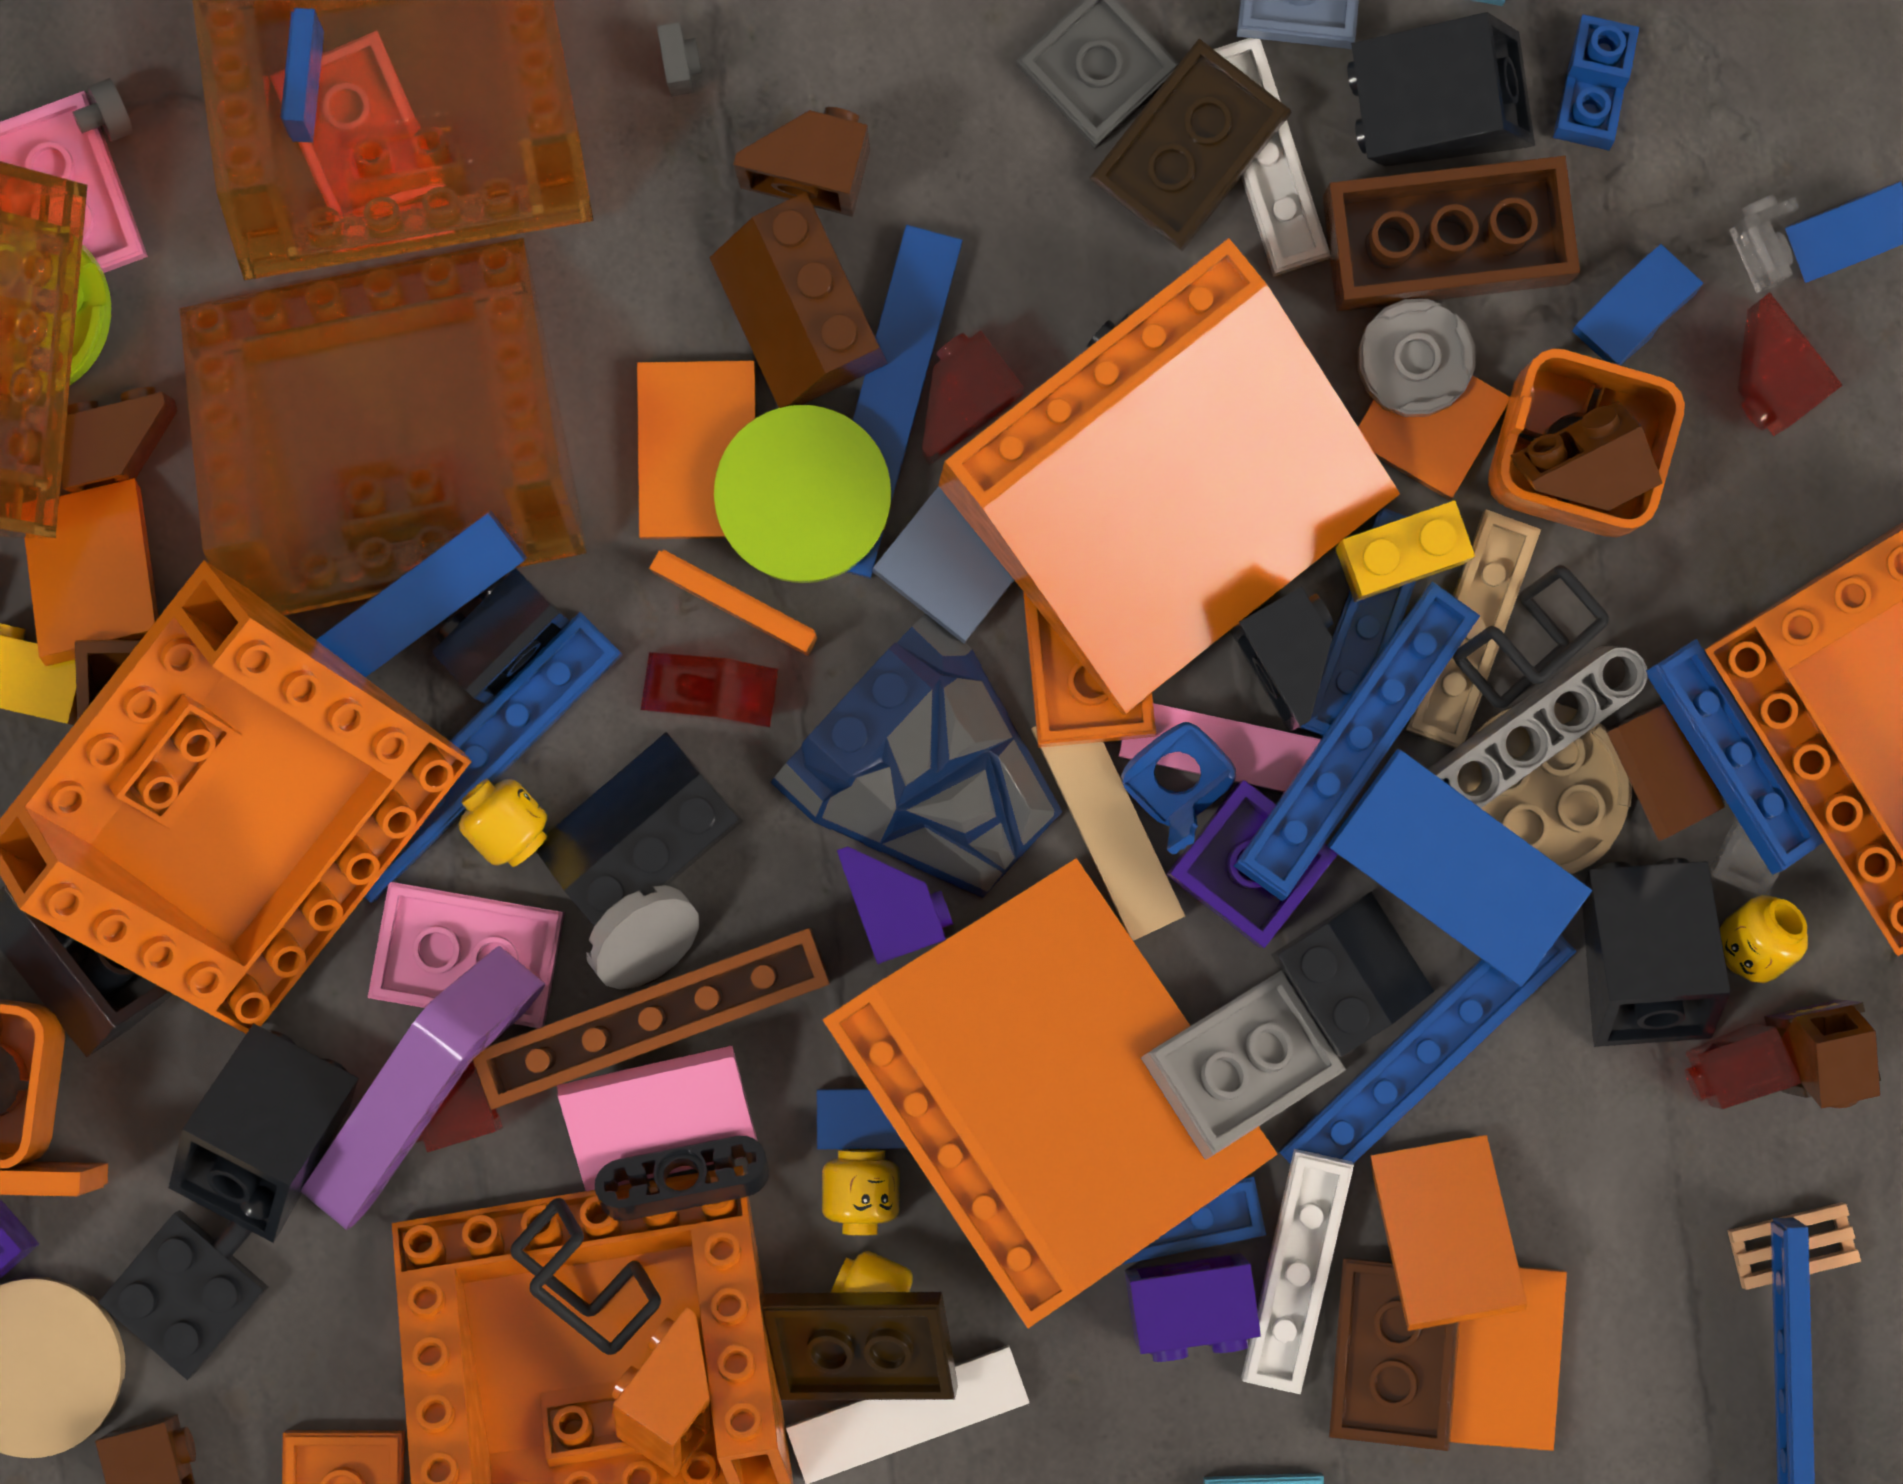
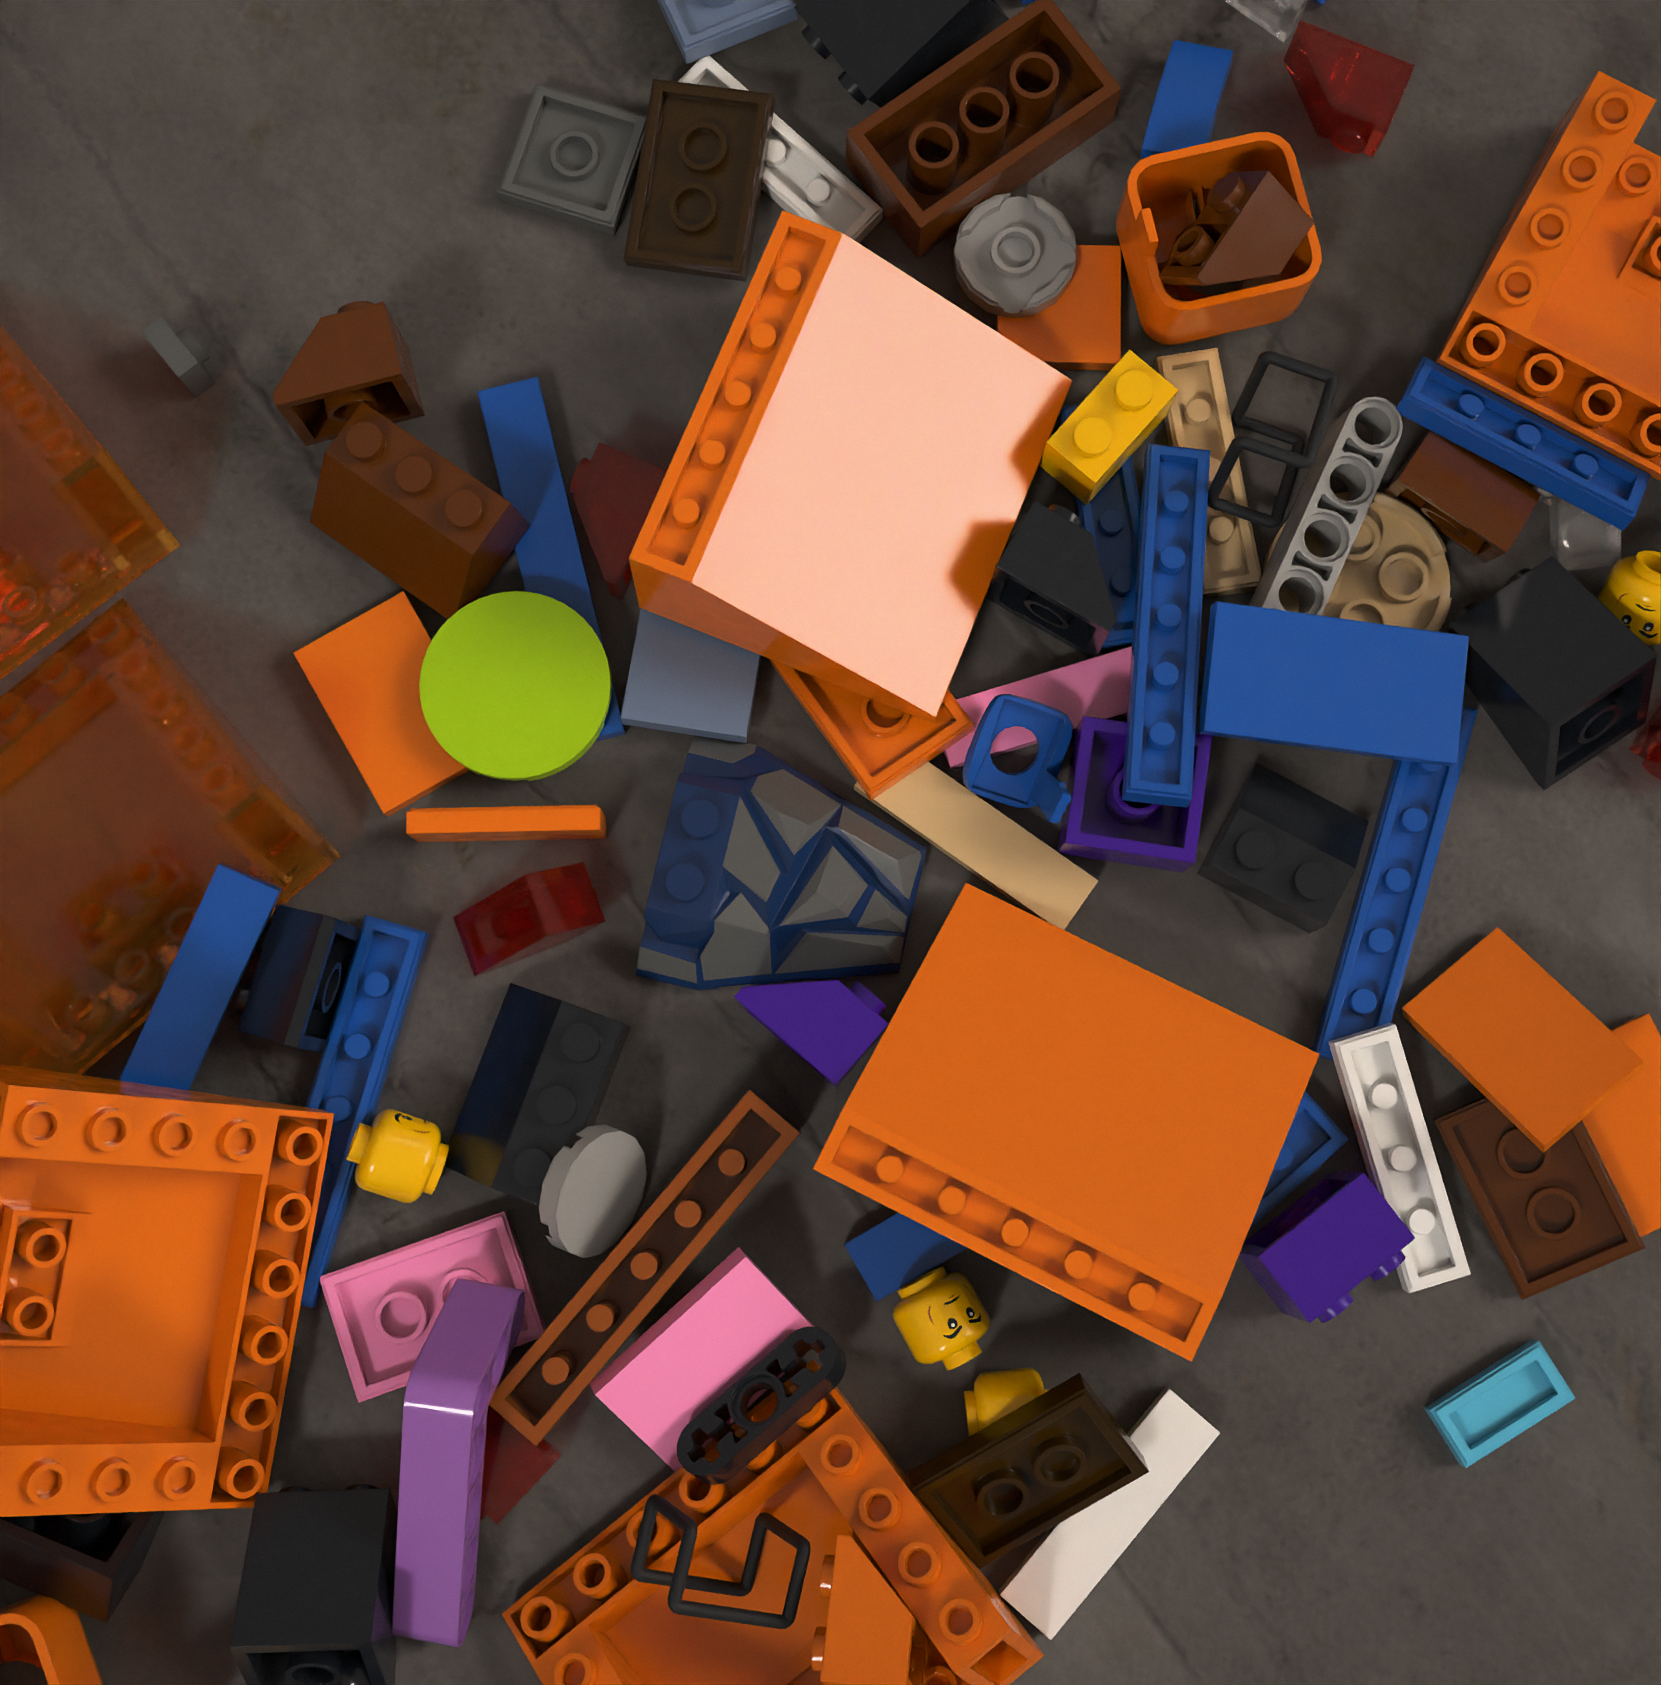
camera: 30 degrees left, 5 degrees down
(1243, 1064) = (1236, 988): light grey tile -> none

